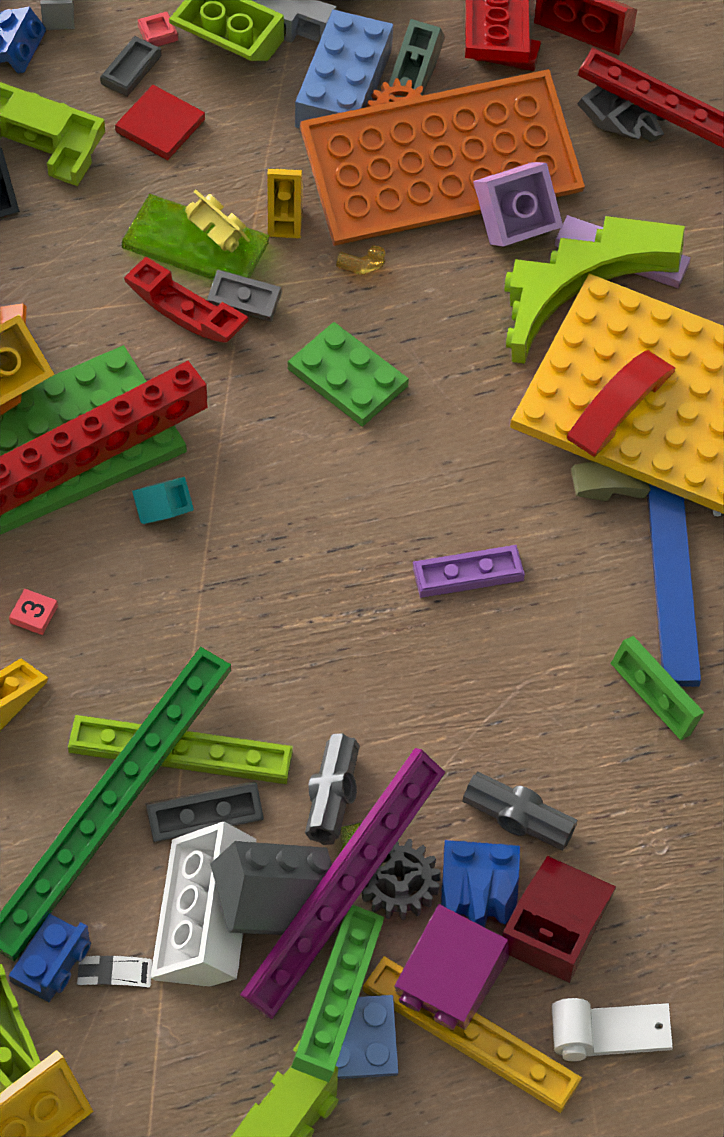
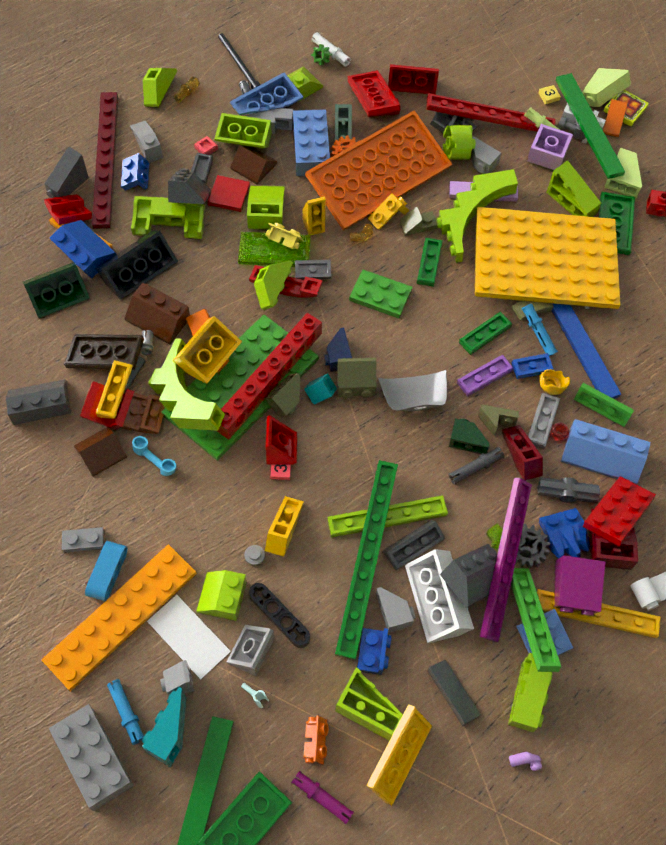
camera: 20 degrees left, 5 degrees up
(47, 565) = (280, 443): none -> red slope
(83, 89) = (187, 188): none -> dark grey slope
(93, 492) = (285, 395): none -> olive slope
(115, 905) = (394, 610): none -> light grey slope
(115, 971) = (407, 646): sticker -> none
(156, 1071) = (453, 692): none -> dark grey slope
(157, 293) = (271, 282): none -> lime slope
(211, 162) = (265, 206): none -> lime slope
(222, 448) = (337, 349): none -> dark blue slope
(225, 82) = (252, 163): none -> reddish brown slope
(230, 499) = (356, 377): none -> olive slope
(324, 559) = (415, 392): none -> light grey piece
(332, 789) = (474, 511): dark grey piece -> none
(375, 716) = (476, 465): none -> dark grey pin
(380, 663) = (468, 437): none -> dark green slope
(428, 230) = (388, 210): none -> yellow bracket
(448, 643) = (493, 415): none -> olive slope
(462, 346) = (429, 262): none -> green tile
(468, 722) = (523, 452): none -> dark red slope
(472, 272) = (418, 222): none -> olive slope
(504, 499) = (485, 333): none -> green tile
(518, 204) = (428, 182): lavender brick -> none
(535, 681) = (543, 420): none -> light grey tile
(557, 700) = (562, 428): none -> clear red plate
(560, 581) = (531, 365): none -> blue plate
(583, 619) = (553, 382): none -> yellow hair
(589, 872) = (619, 511): none -> red plate
(598, 510) = (539, 329): none -> dark azure pin
(611, 150) = (458, 142): none -> lime brick
(617, 400) = (525, 267): red slope -> none
(619, 768) = (605, 451): none -> medium blue slope
(651, 191) = (484, 157): none -> light grey slope

